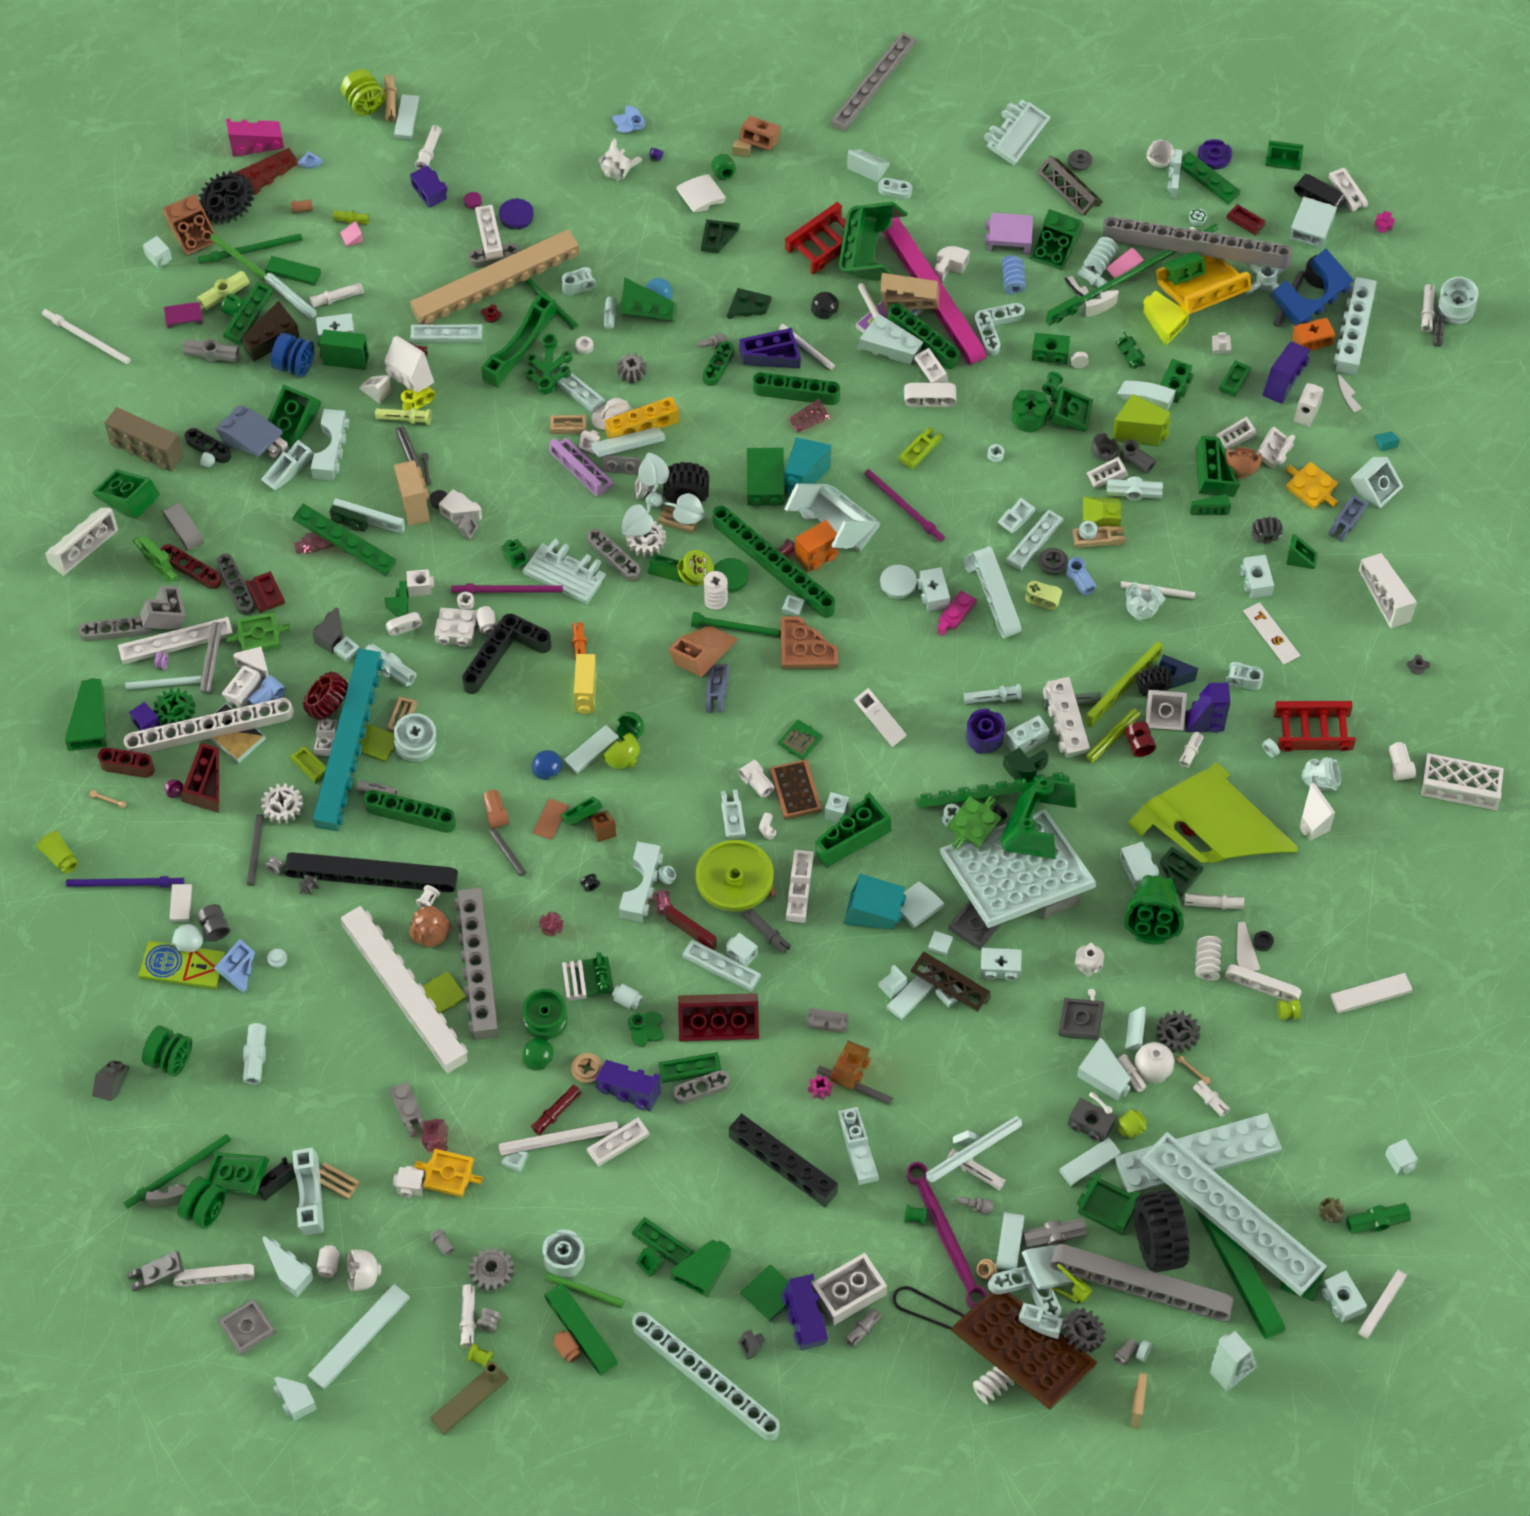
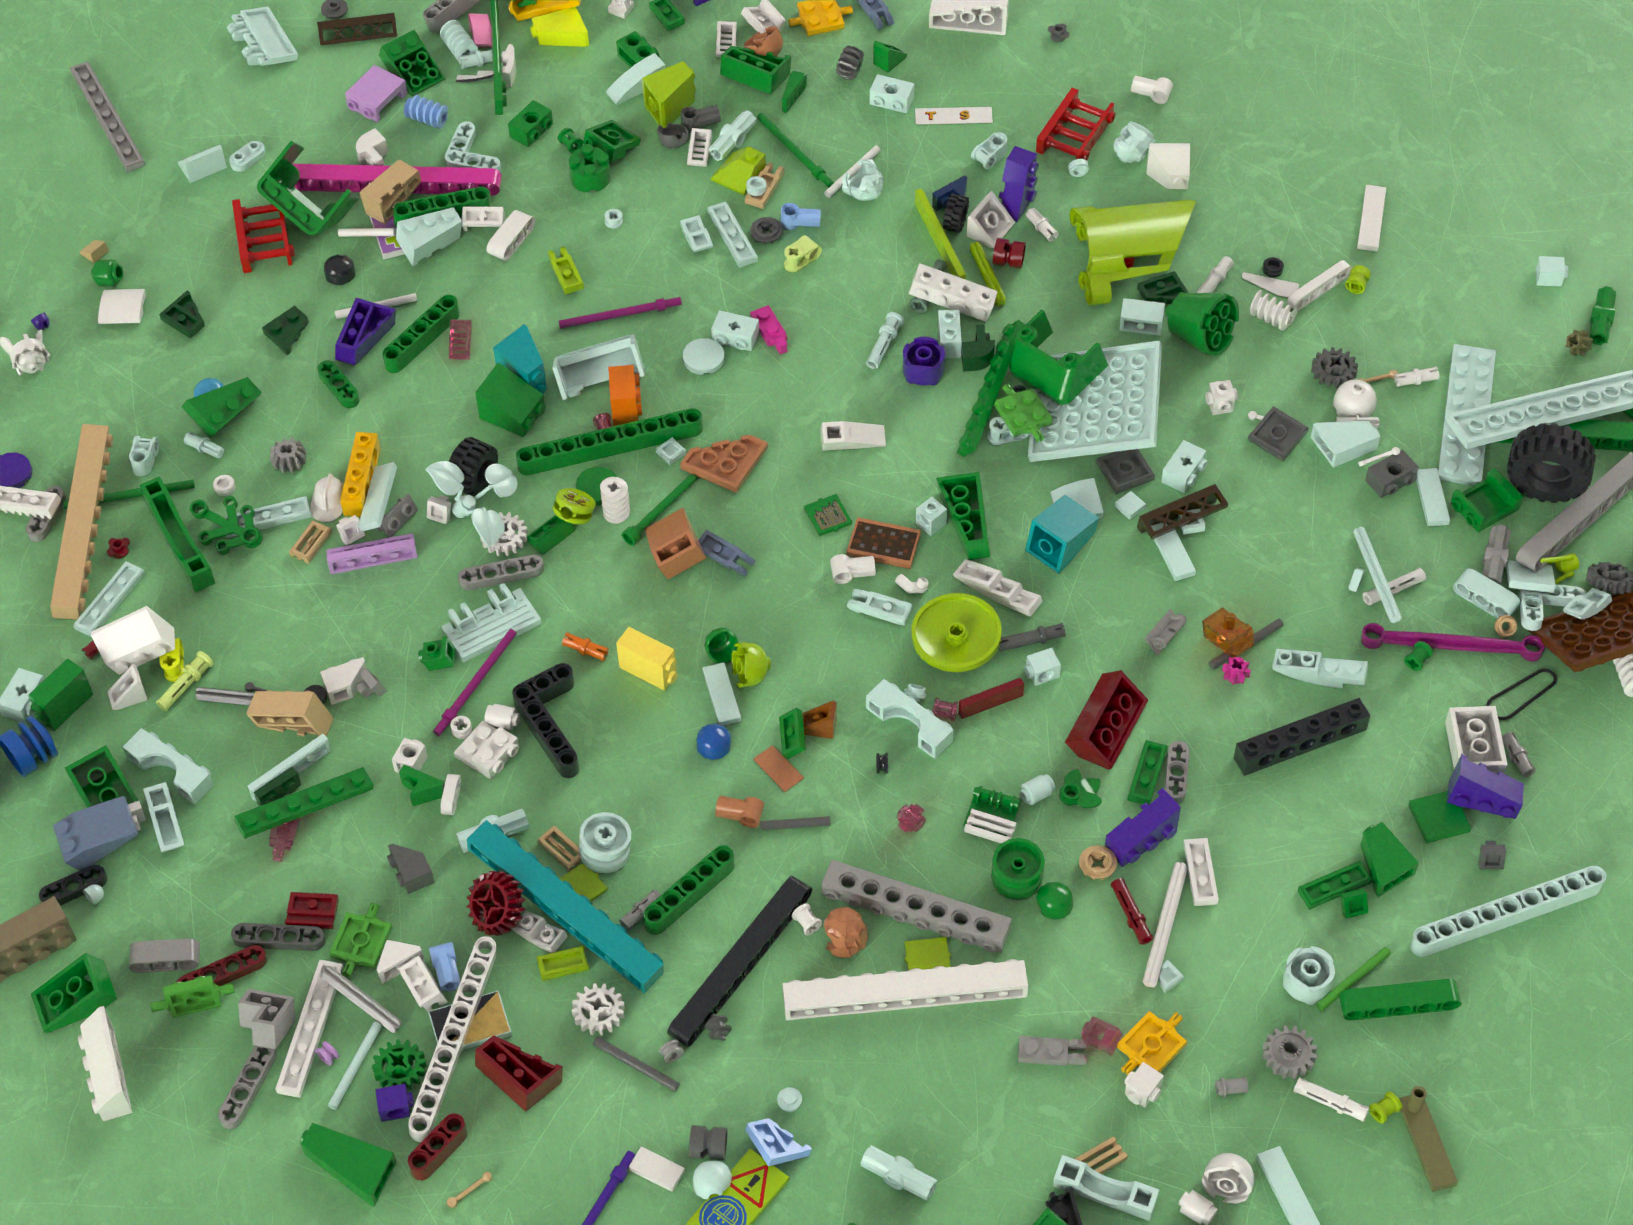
camera: 60 degrees left, 5 degrees down
(173, 788) = (505, 1111): magenta plate -> none
(346, 649) = (443, 863): light aqua plate -> none
(488, 1320) = (1348, 1080): light grey wheel -> none
(567, 1346) = (1413, 1020): nougat brick -> none
(668, 513) = (492, 498): tan tile -> none
(713, 341) = (309, 374): light grey bar -> none
(721, 965) = (1046, 694): light aqua tile -> none
(760, 133) = (93, 225): nougat brick -> none
(893, 983) = (1154, 558): light aqua panel -> none
(984, 1205) = (1432, 602): light grey bar -> none
(995, 590) = (772, 276): light aqua beam -> none
(1079, 360) = (559, 109): white tile -> none
(1132, 1124) = (1413, 443): lime head -> none
(1134, 356) = (569, 68): green hinge -> none
(1135, 1029) = (1313, 397): light aqua slope -> none
(1139, 565) = (817, 171): none -> green bar
(1460, 792) = (1206, 65): white fence -> none

